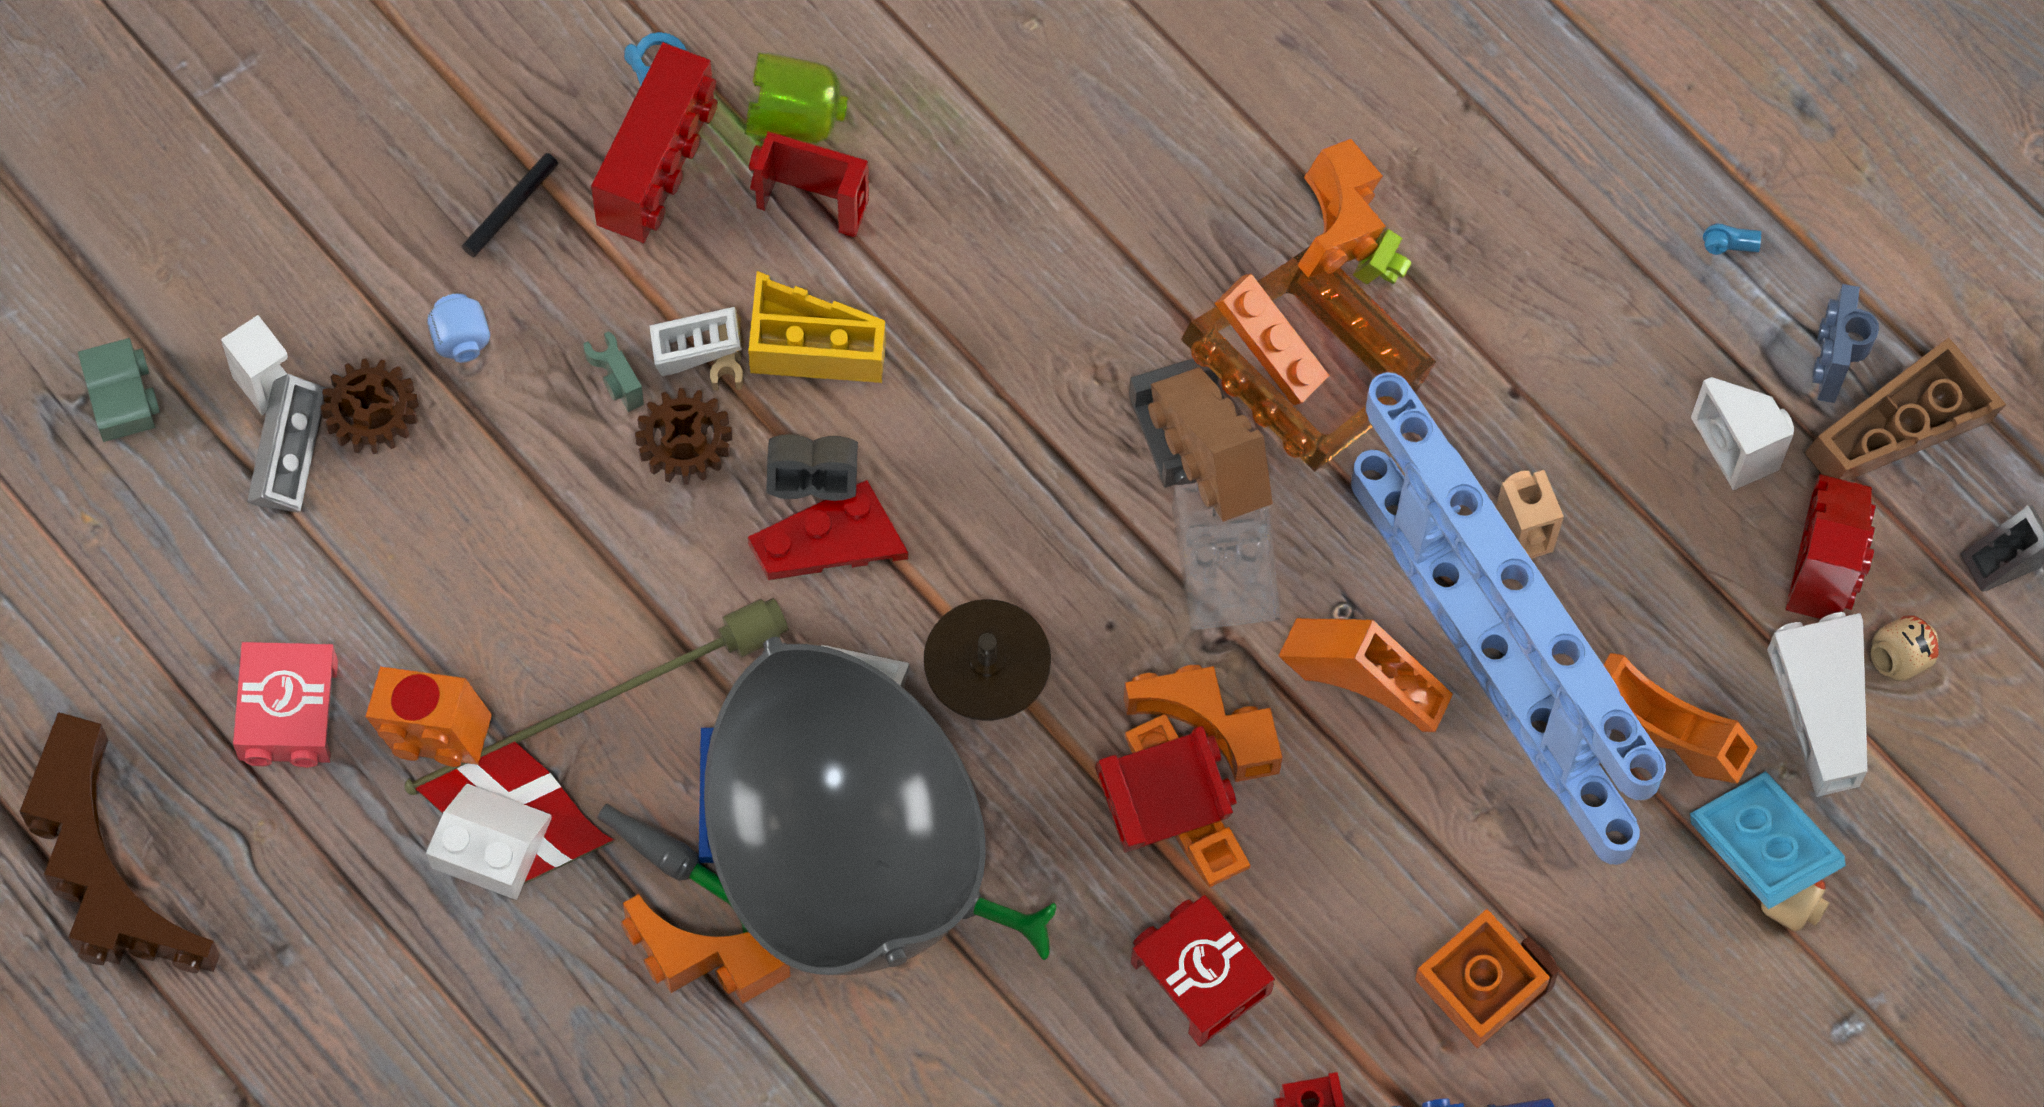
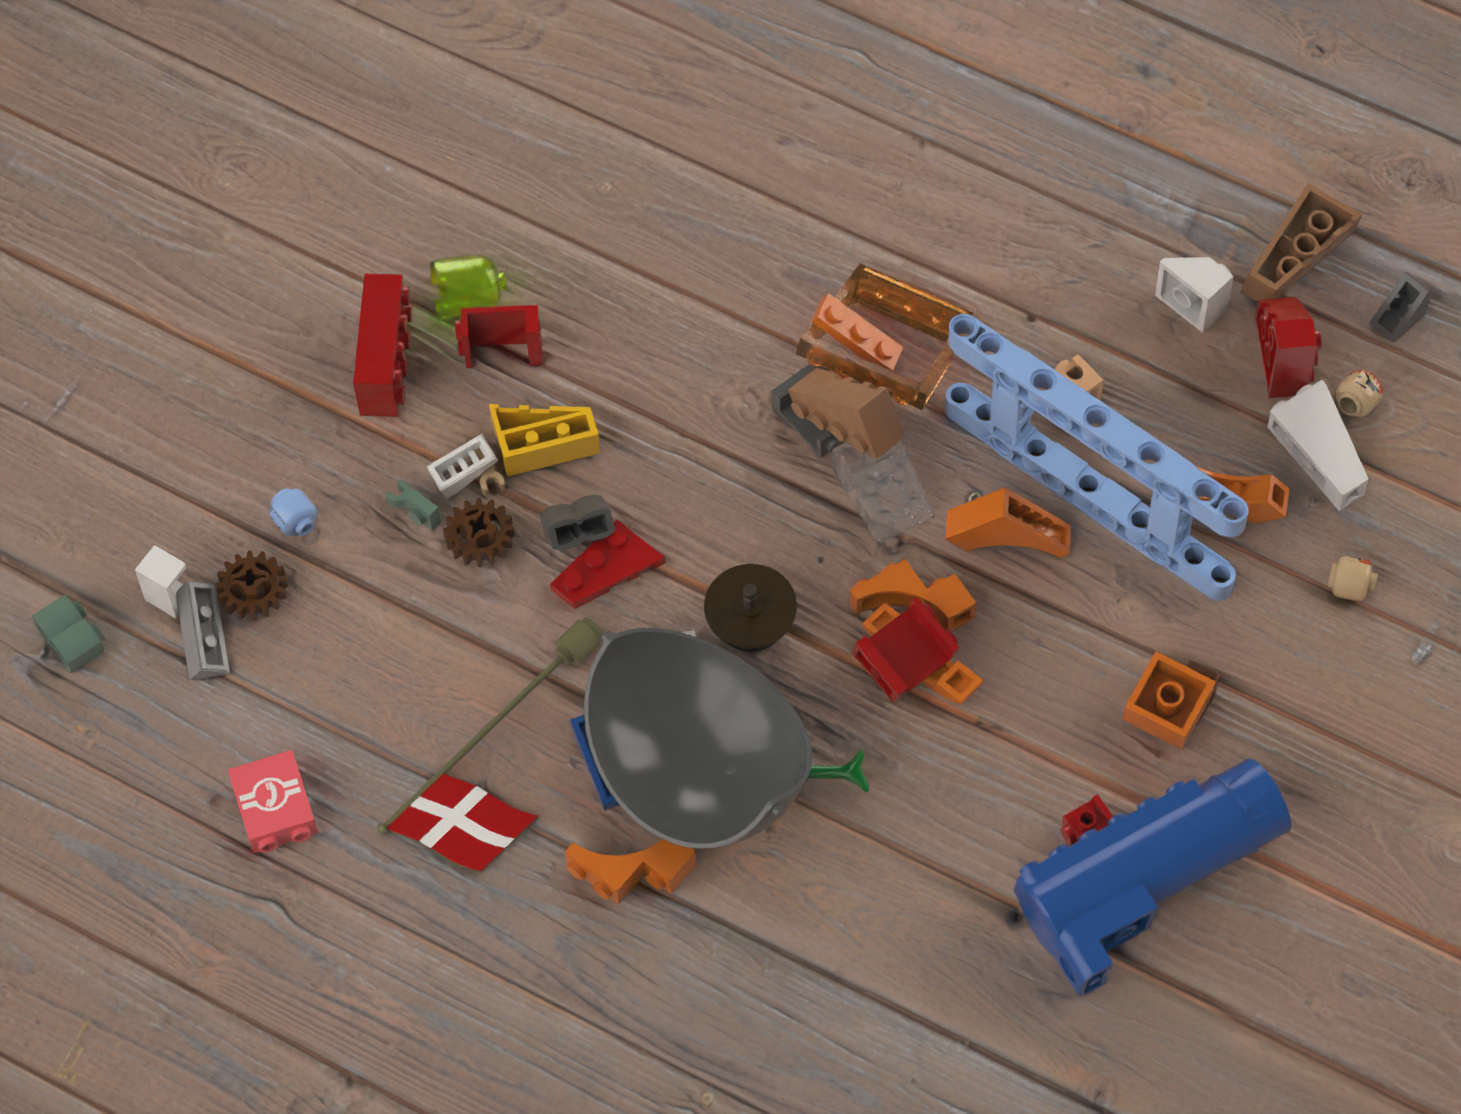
camera: 15 degrees left, 5 degrees down
(111, 917) = (174, 961): reddish brown arch -> none
(428, 716) = (379, 773): orange brick -> none
(488, 840) = (452, 845): white slope -> none
(510, 204) = (294, 421): black bar -> none
(634, 53) = (341, 296): dark azure piece -> none
(664, 851) = (584, 812): dark grey piece -> none
(1203, 967) = (978, 758): red panel -> none
(1344, 188) = (865, 223): orange arch -> none
(1383, 260) = (908, 260): lime tile -> none
(1721, 238) = (1130, 172): dark azure arm -> none
(1767, 840) = (1320, 546): medium azure tile -> none
(1837, 346) = (1235, 212): sand blue plate -> none

